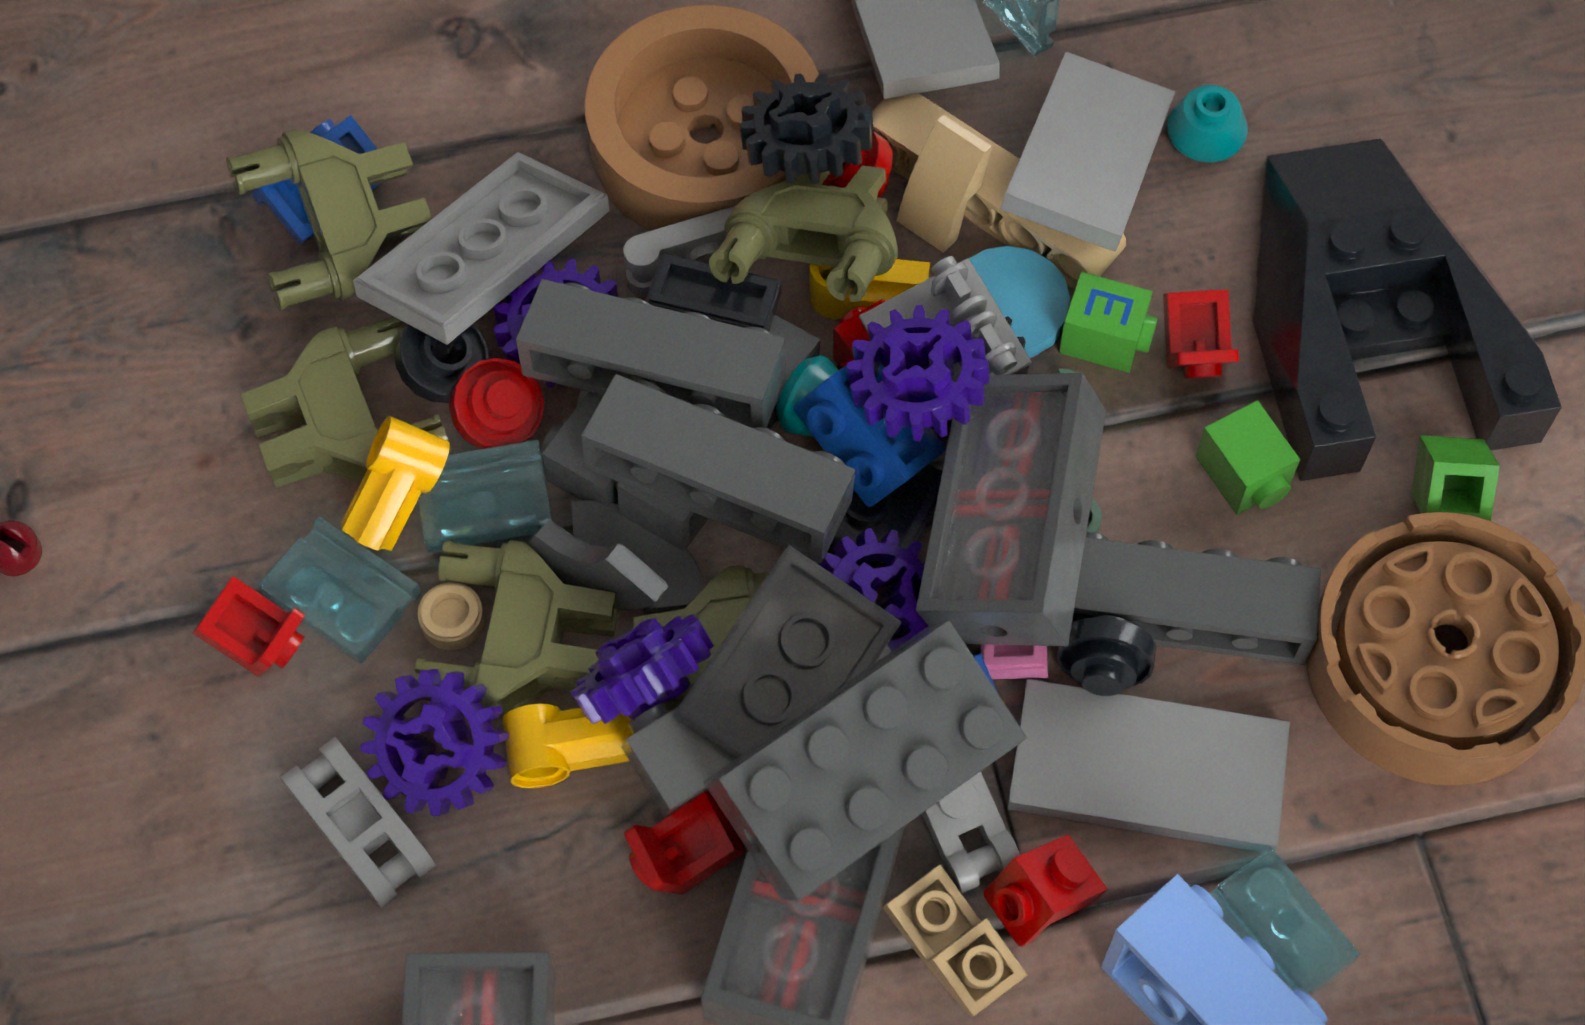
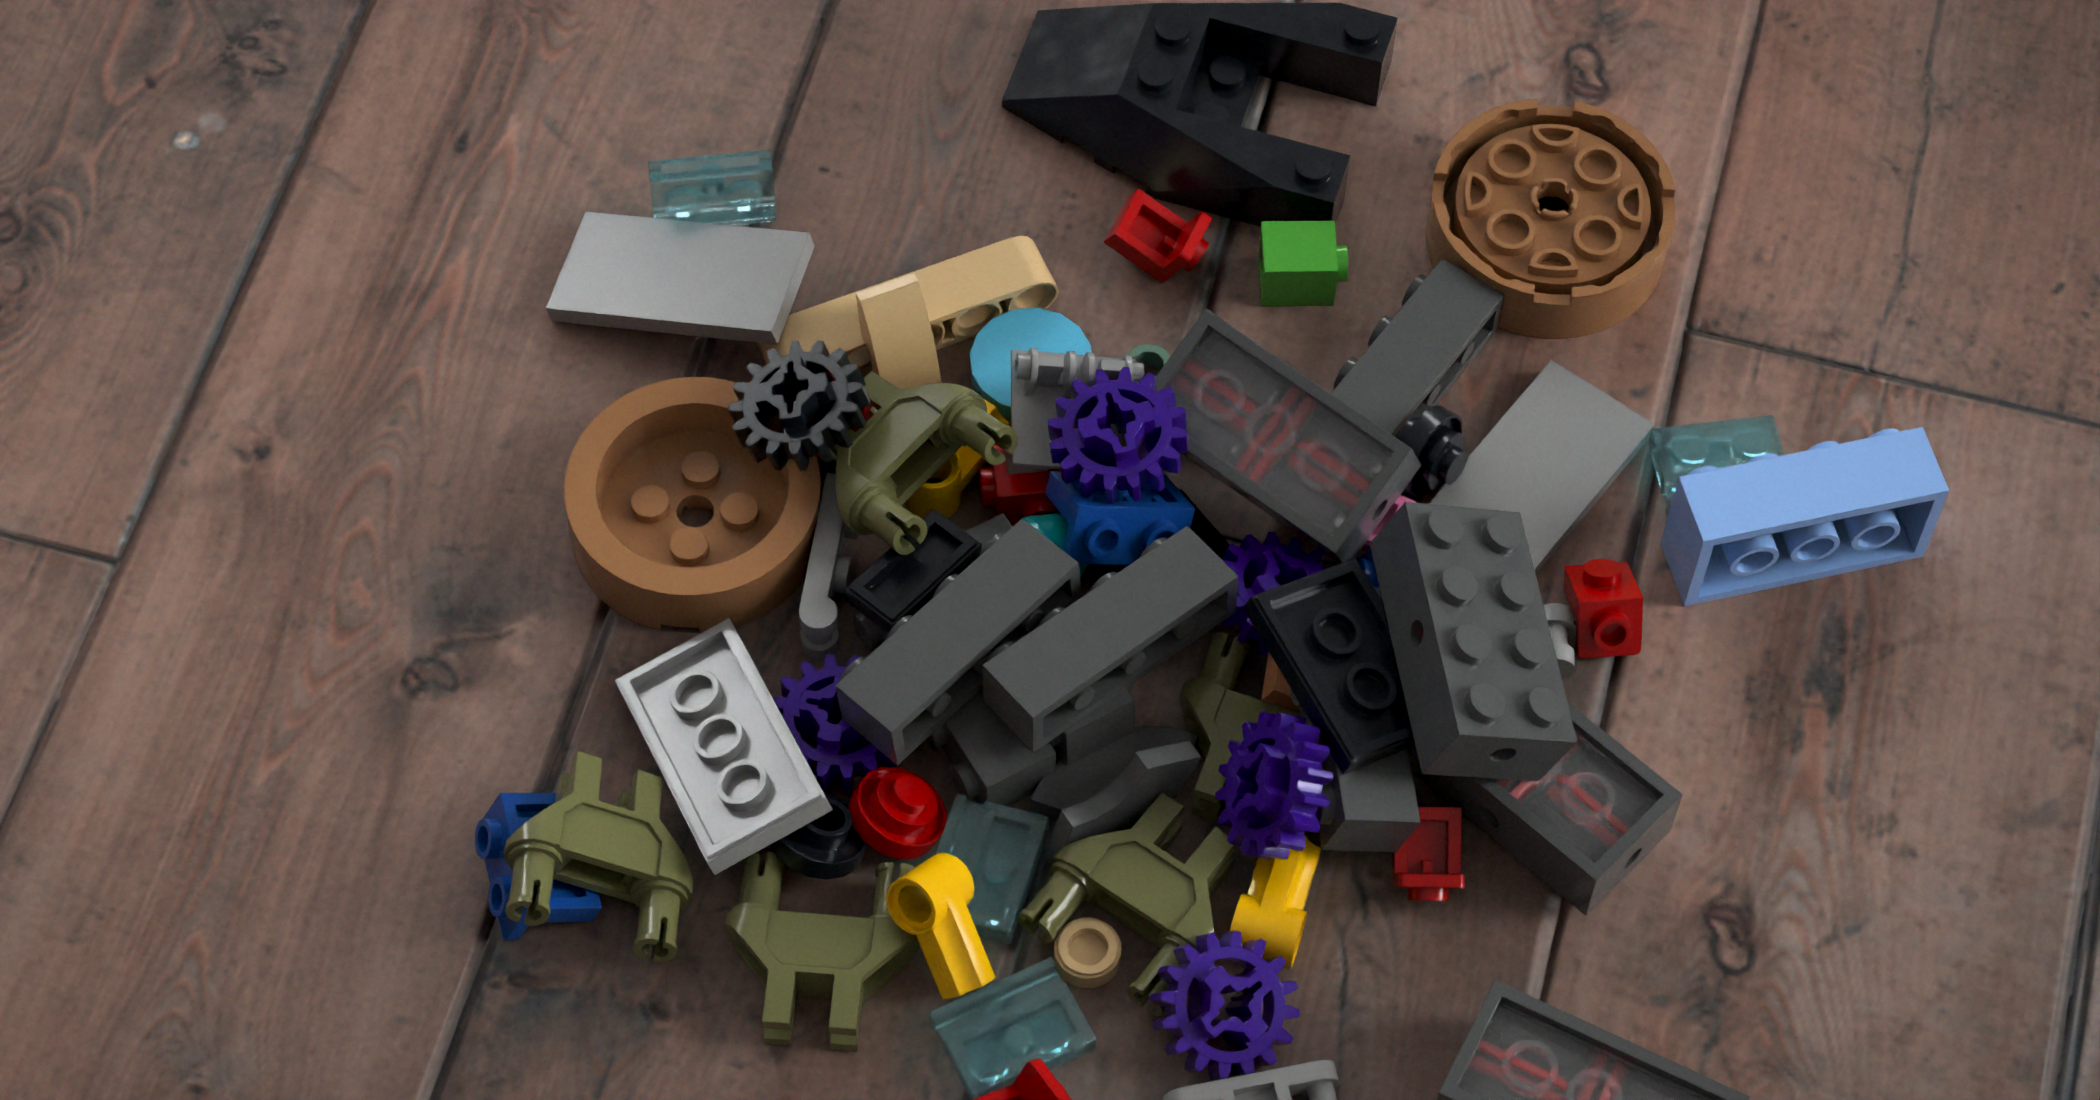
camera: 65 degrees left, 5 degrees down
(954, 942) = (1627, 692): tan slope -> none
(1088, 151) = (931, 218): light grey tile -> none
(1108, 322) = (1106, 296): bright green brick -> none
(1208, 124) = (945, 124): teal cone -> none
(1455, 476) = (1408, 128): bright green brick -> none

